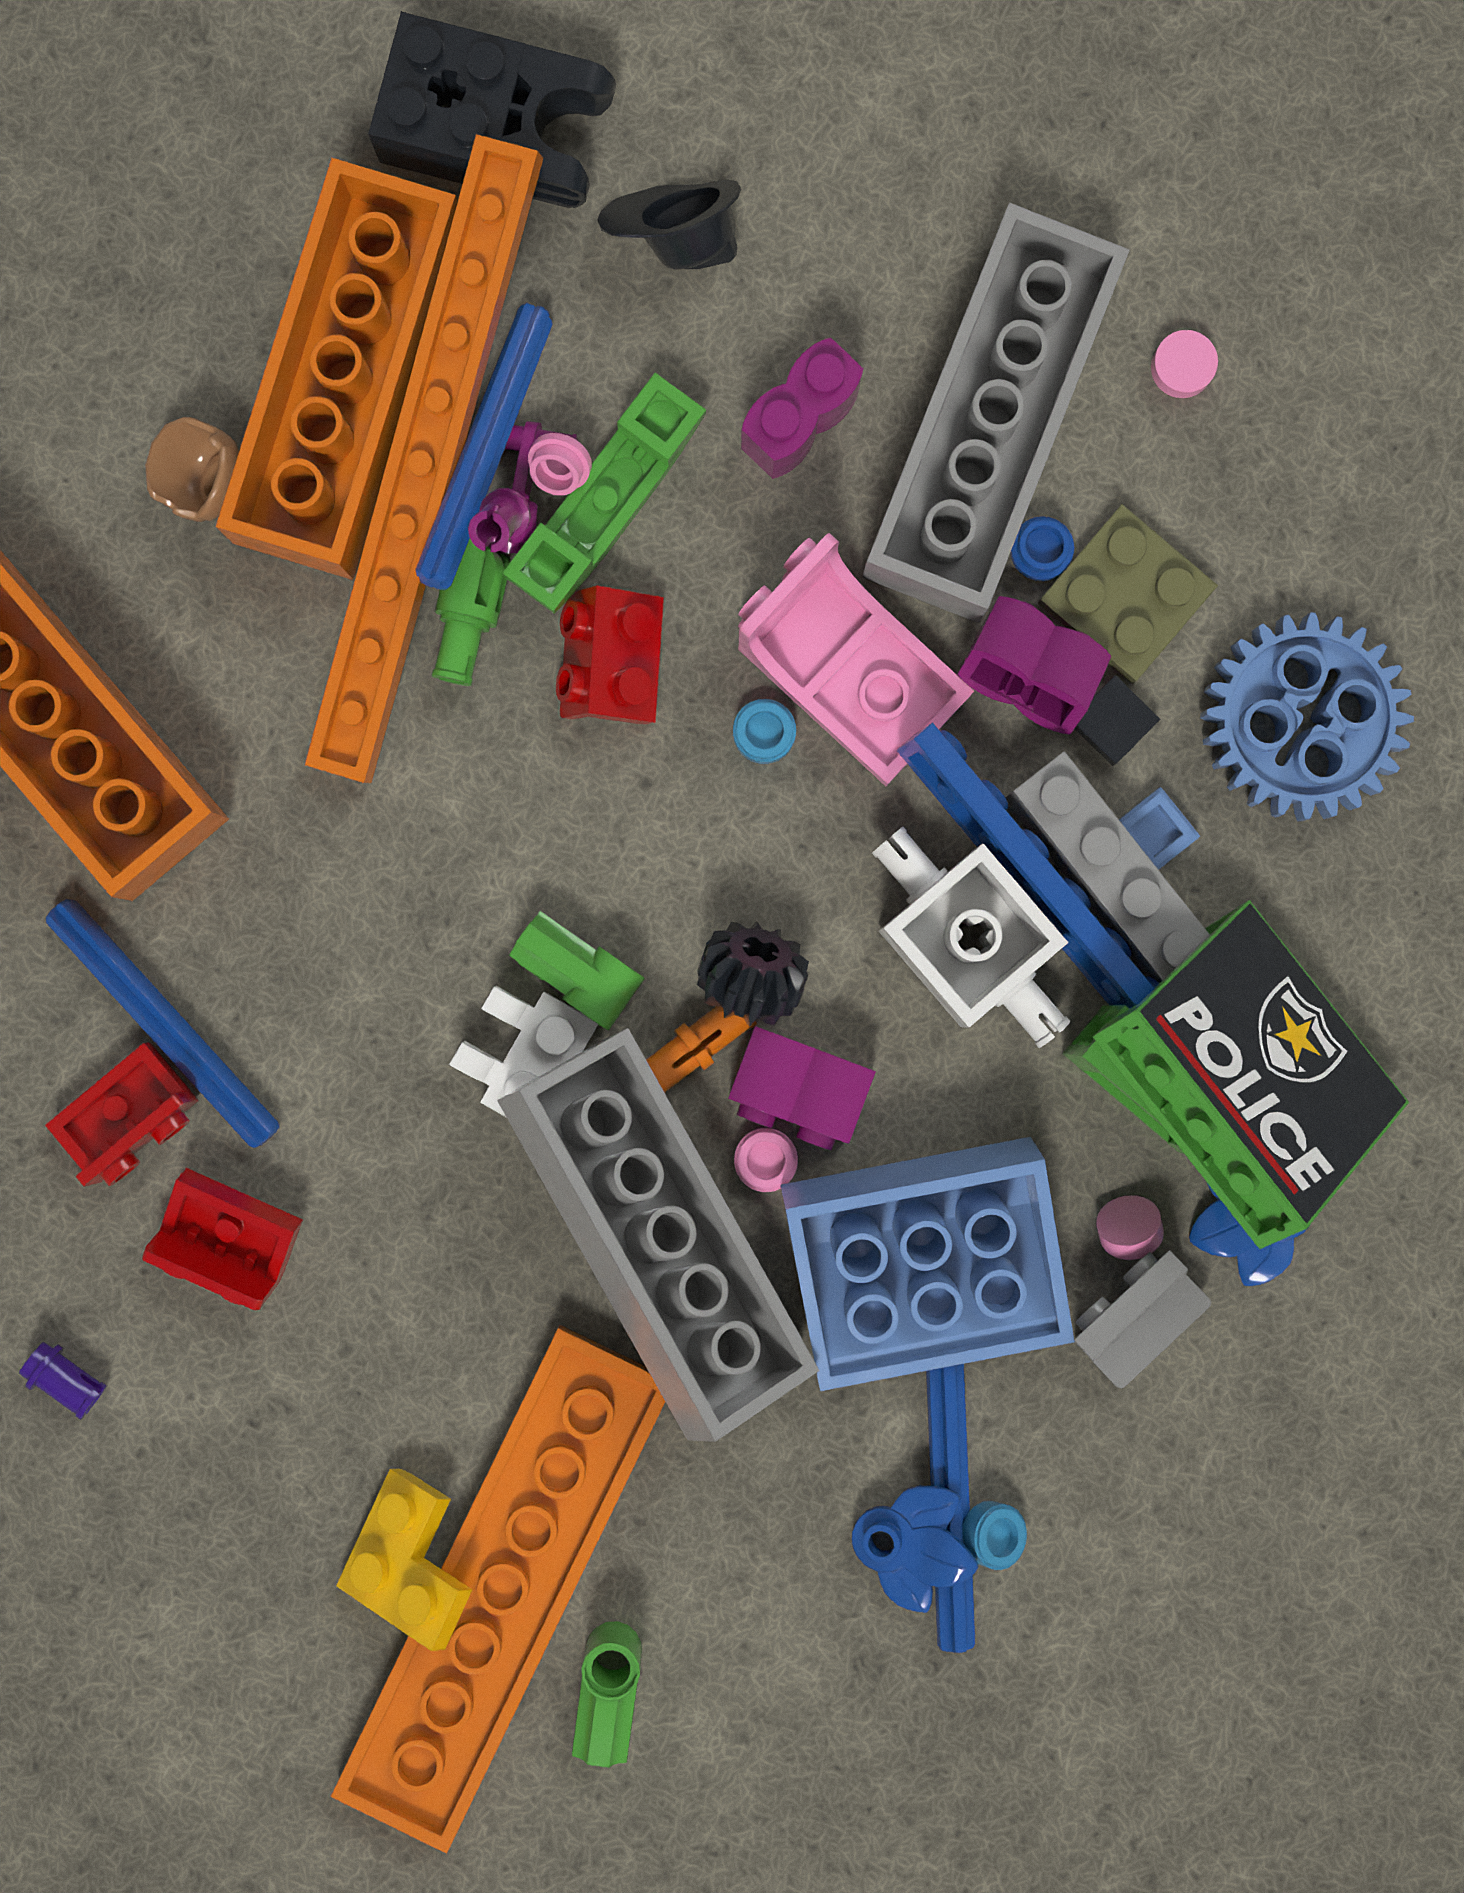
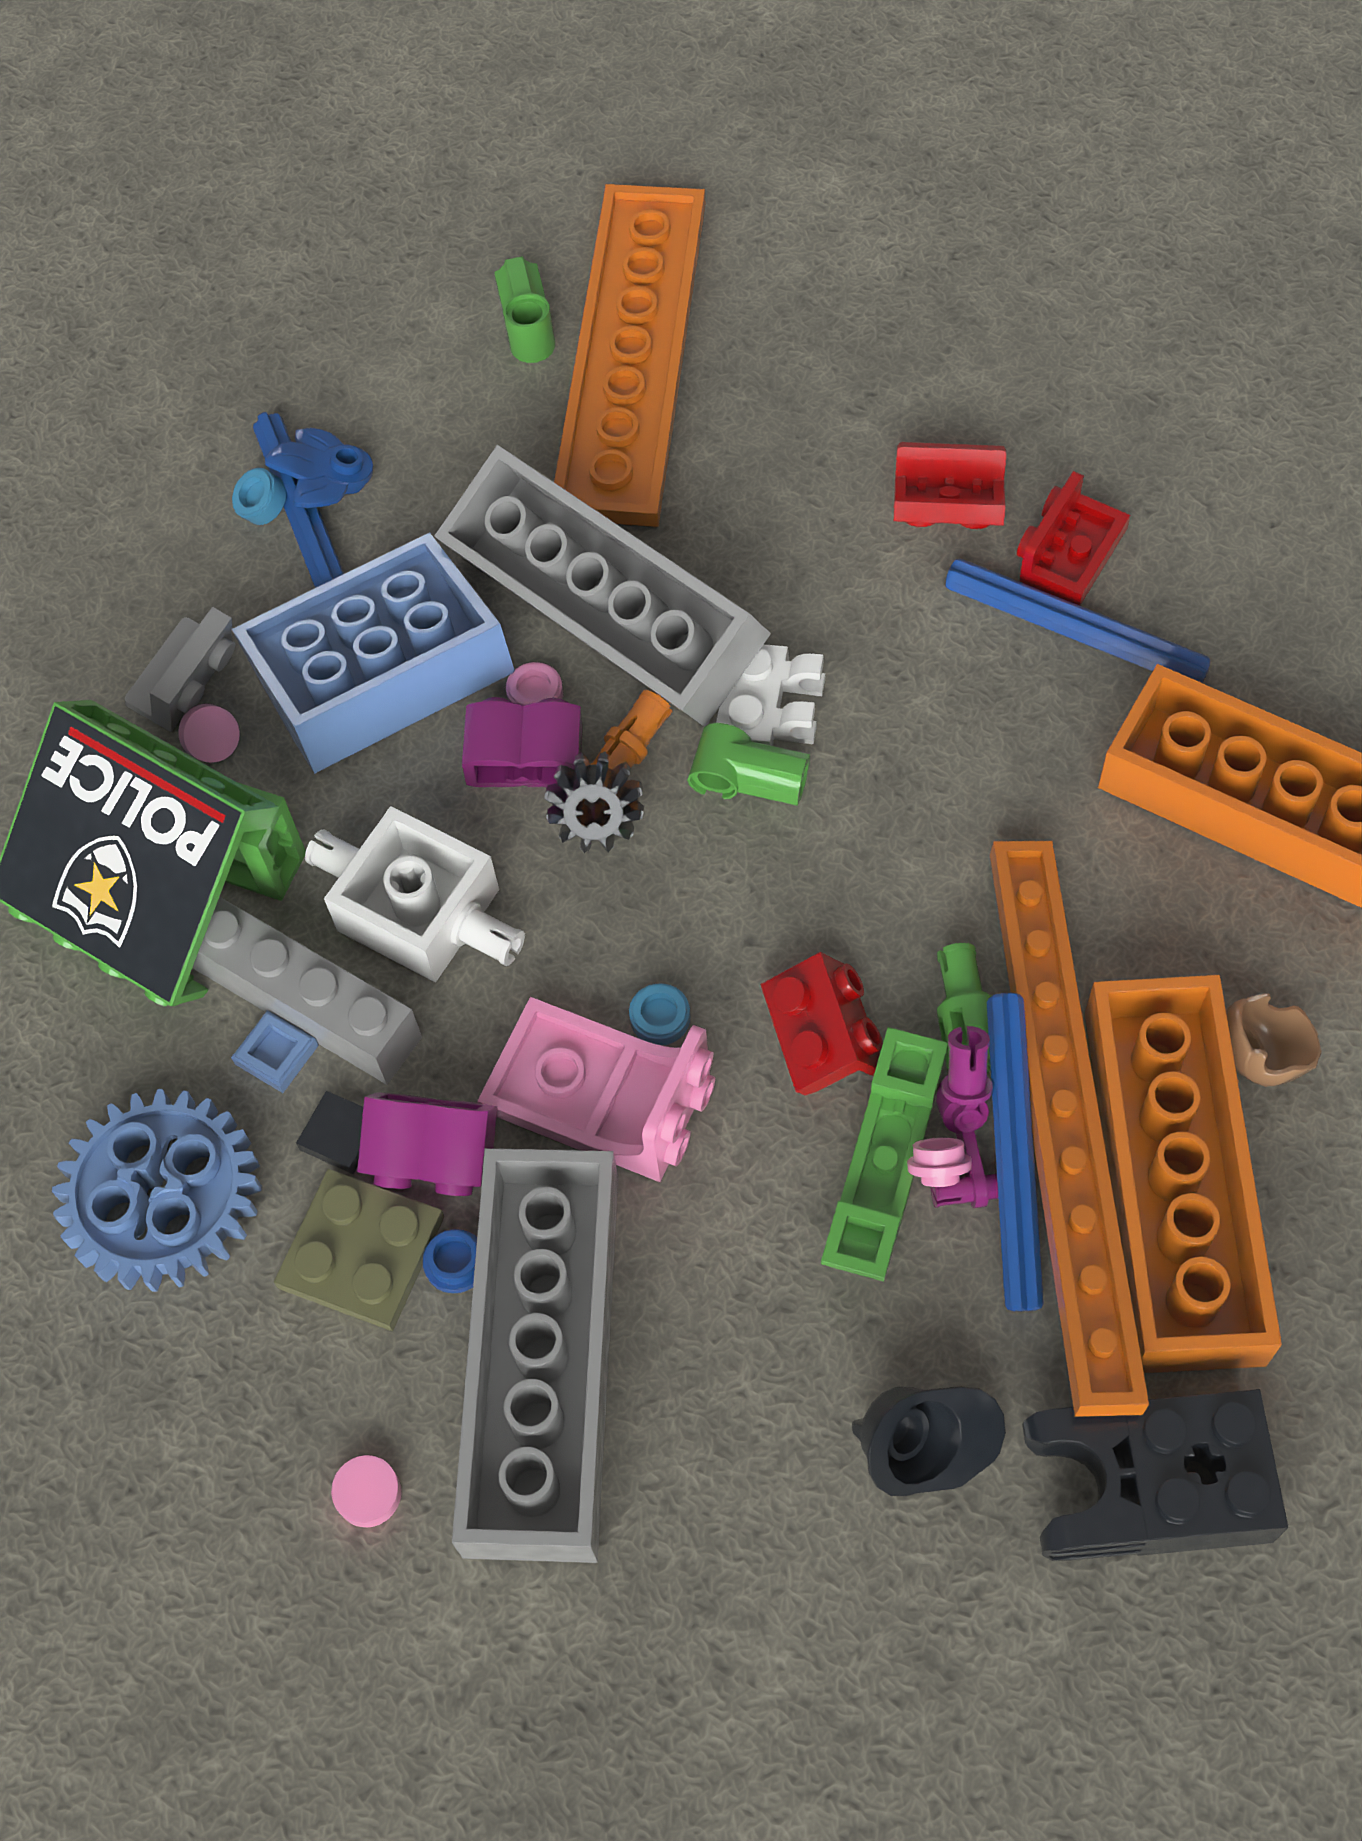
camera: 170 degrees right, 25 degrees down
(62, 1379) = (1029, 367): dark purple pin -> none
(390, 1567) = (719, 327): yellow plate -> none
(813, 400) = (720, 1309): magenta brick -> none
(983, 817) = (384, 963): blue plate -> none

